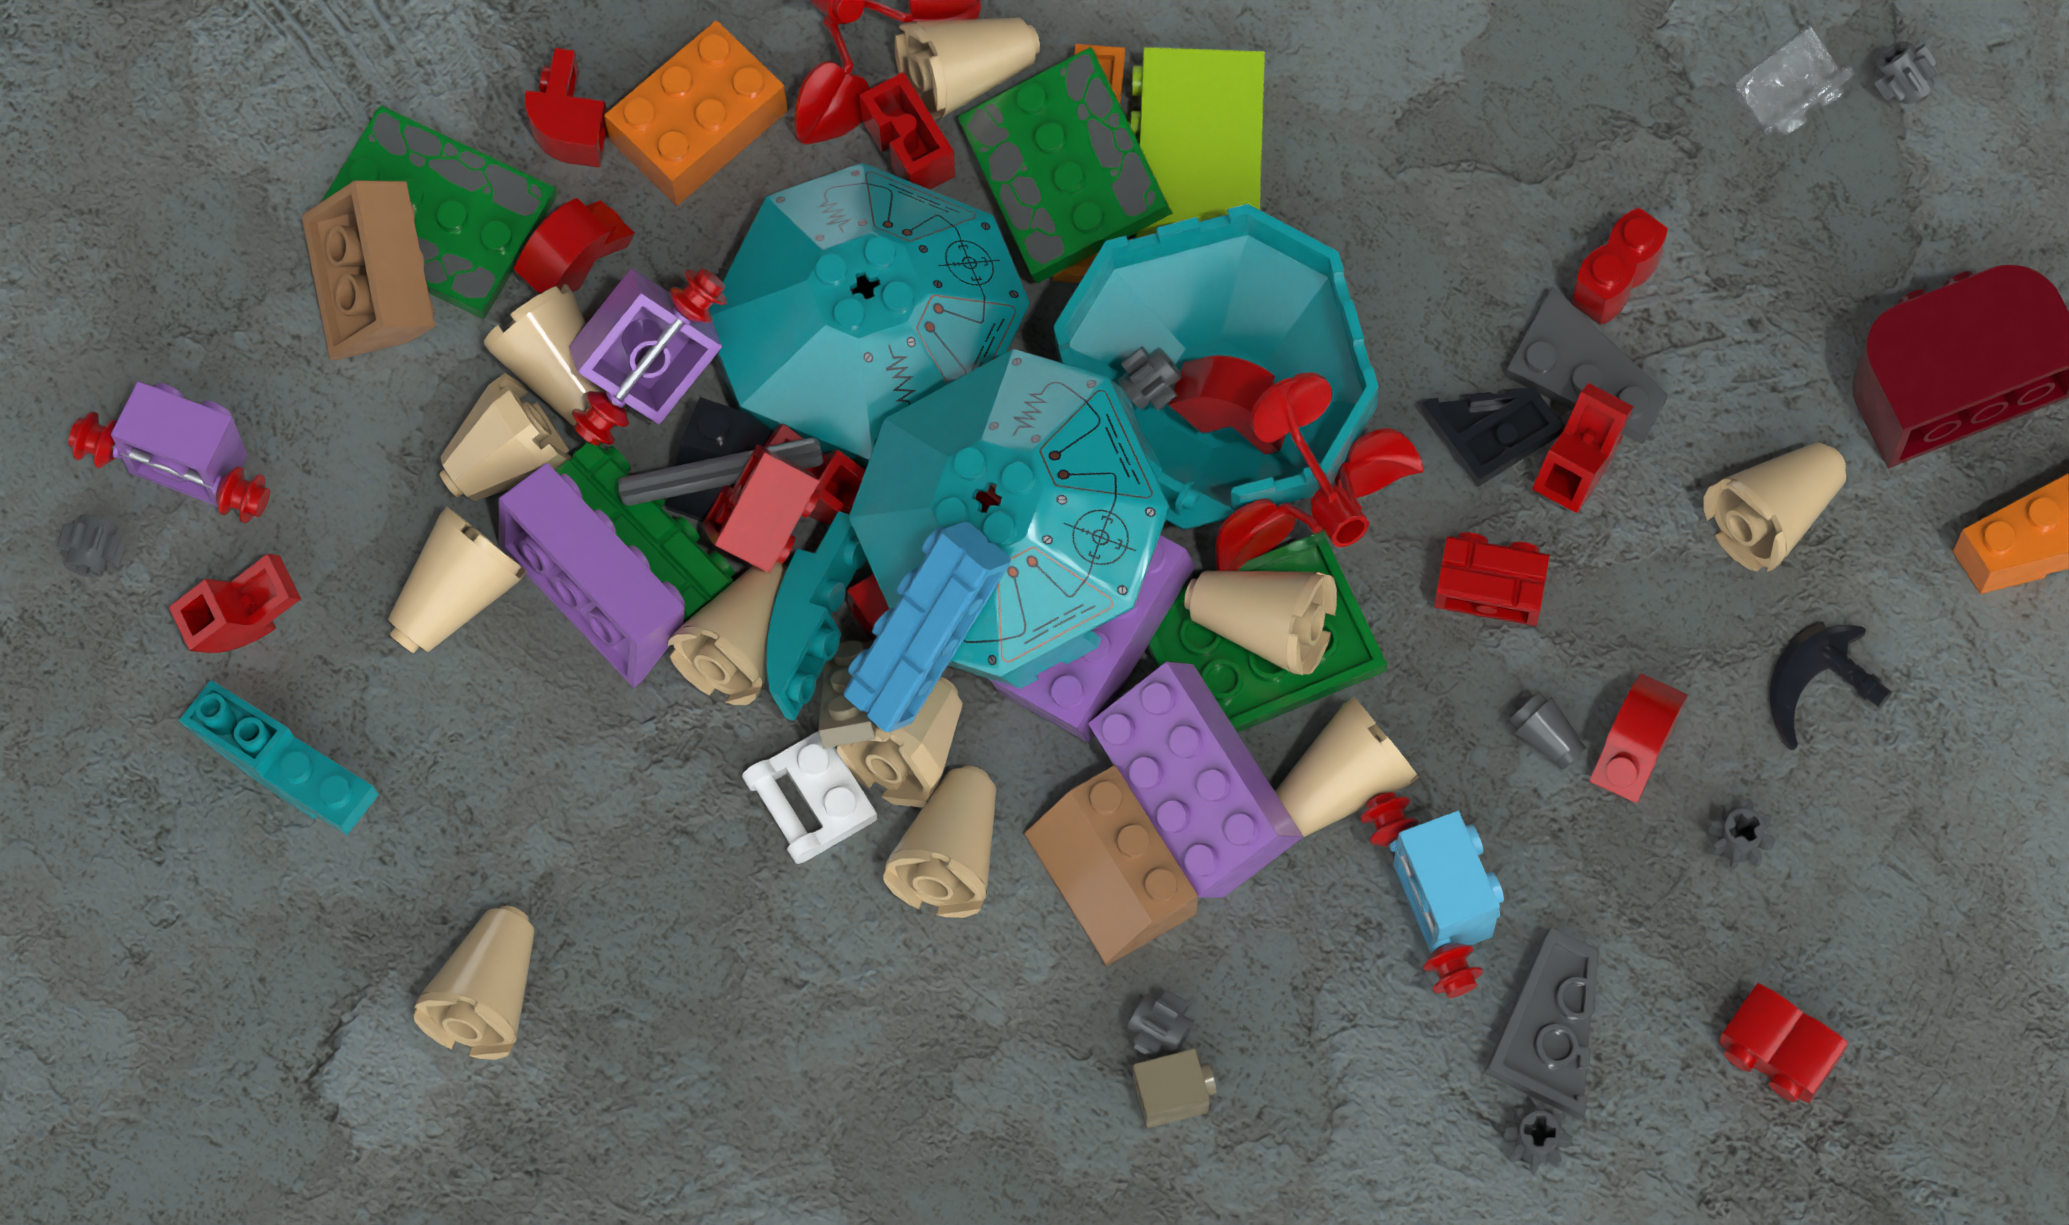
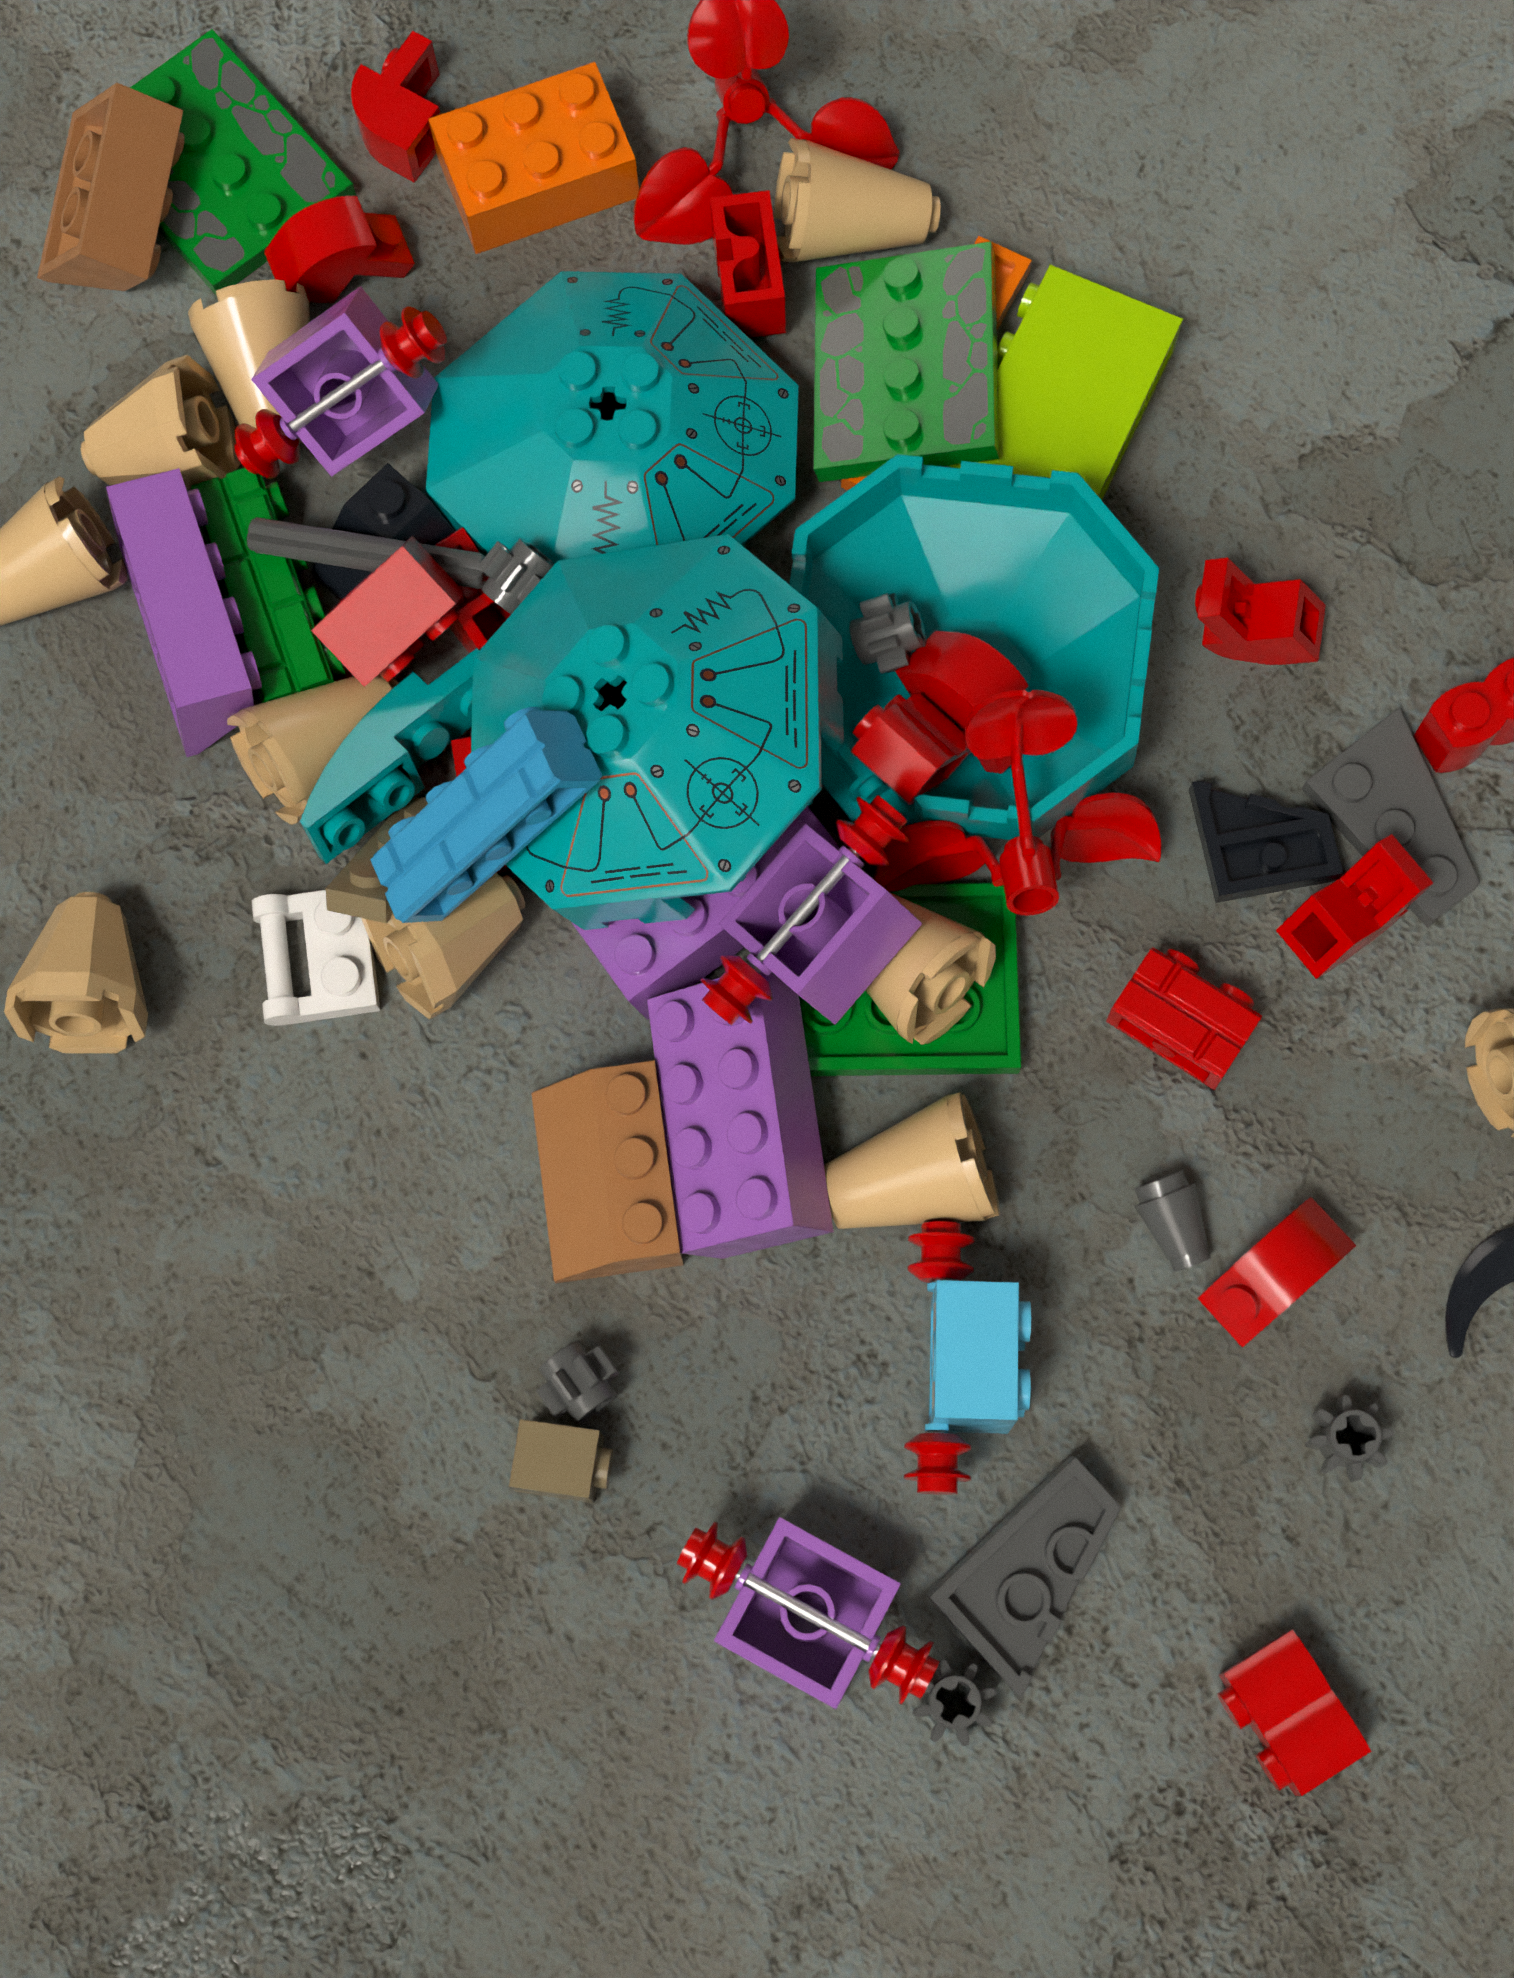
camera: 25 degrees right, 5 degrees up
(644, 884) = (80, 981): none -> tan cone
(850, 443) = (513, 572): none -> dark grey gear
(947, 847) = (434, 1073): tan cone -> none
(1200, 607) = (816, 920): none -> medium lavender brick
(1207, 454) = (910, 745): none -> red brick
(1406, 1114) = (807, 1613): none -> medium lavender brick
(1419, 261) = (1258, 621): none -> red brick

